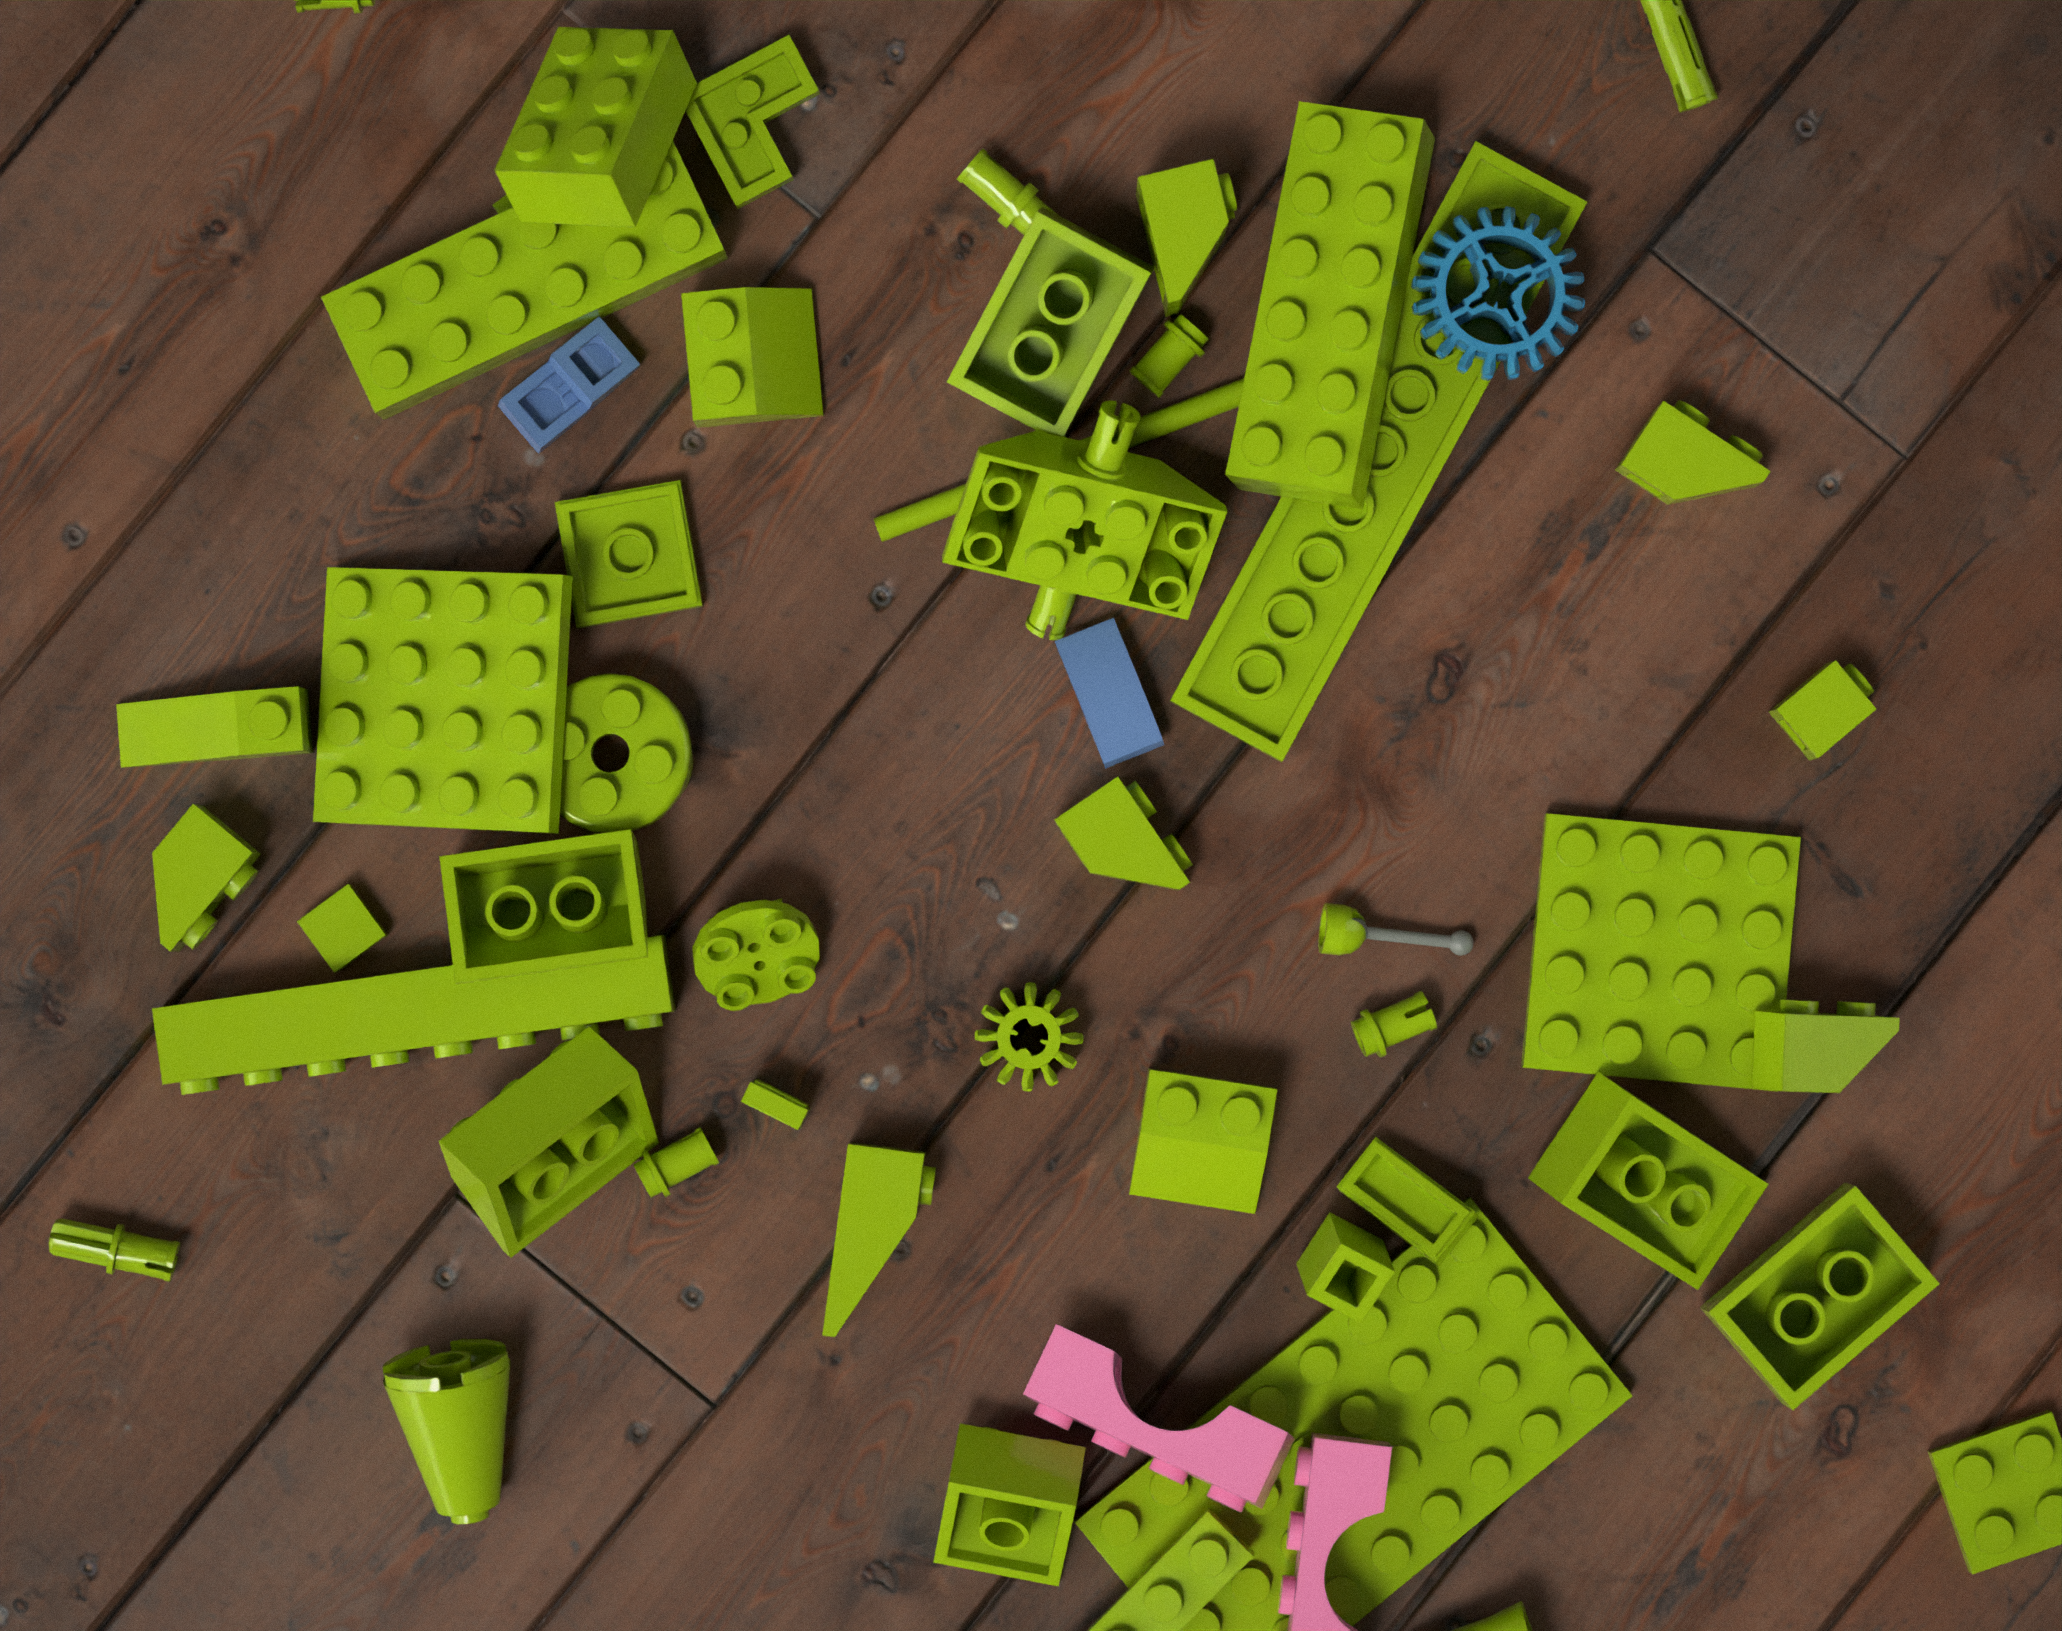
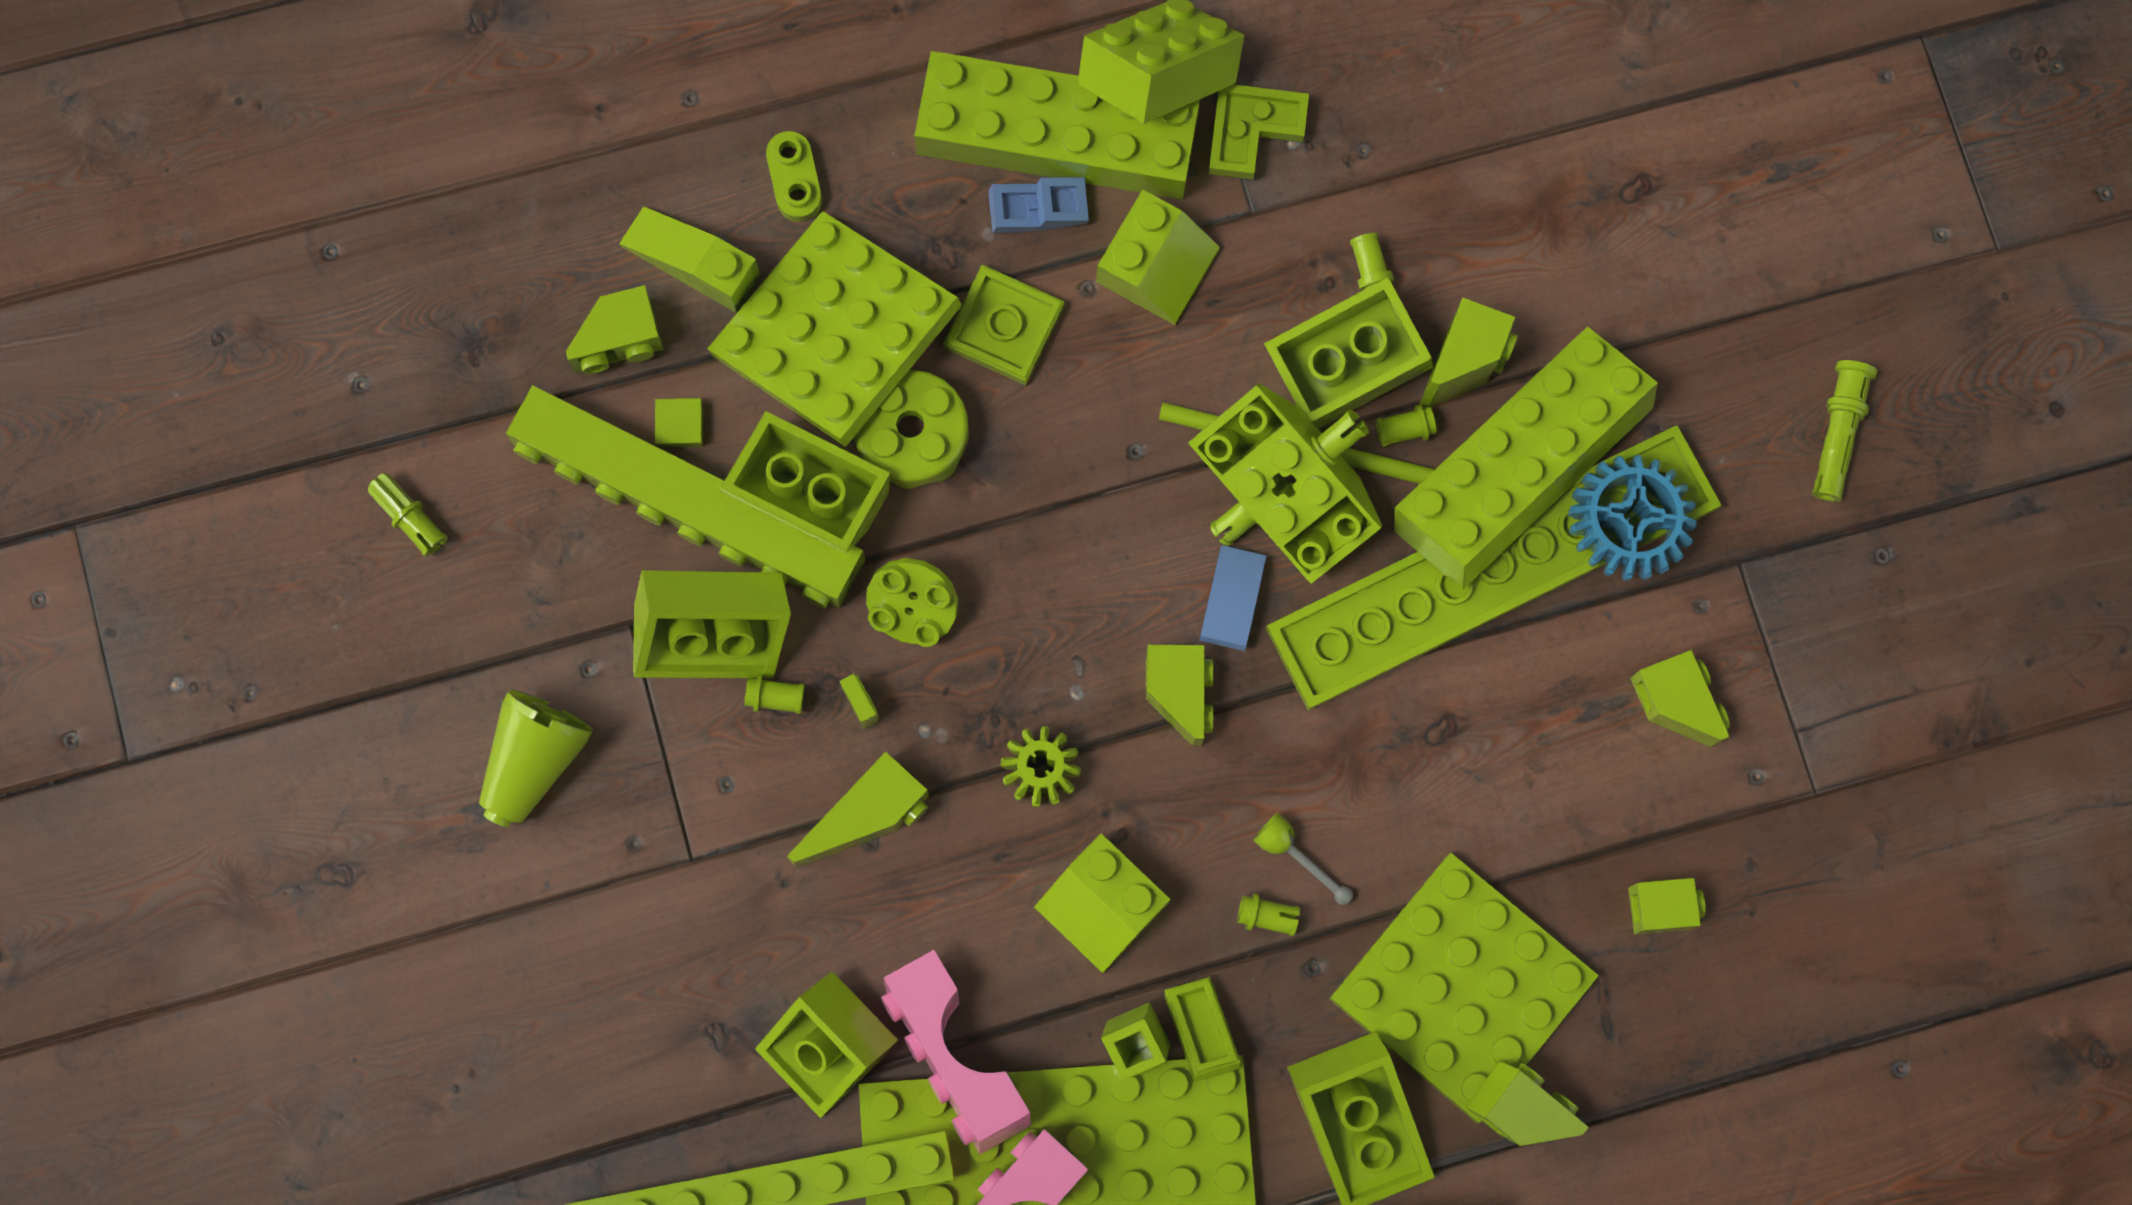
camera: 30 degrees right, 10 degrees down
(262, 546) = (794, 174): none -> lime plate

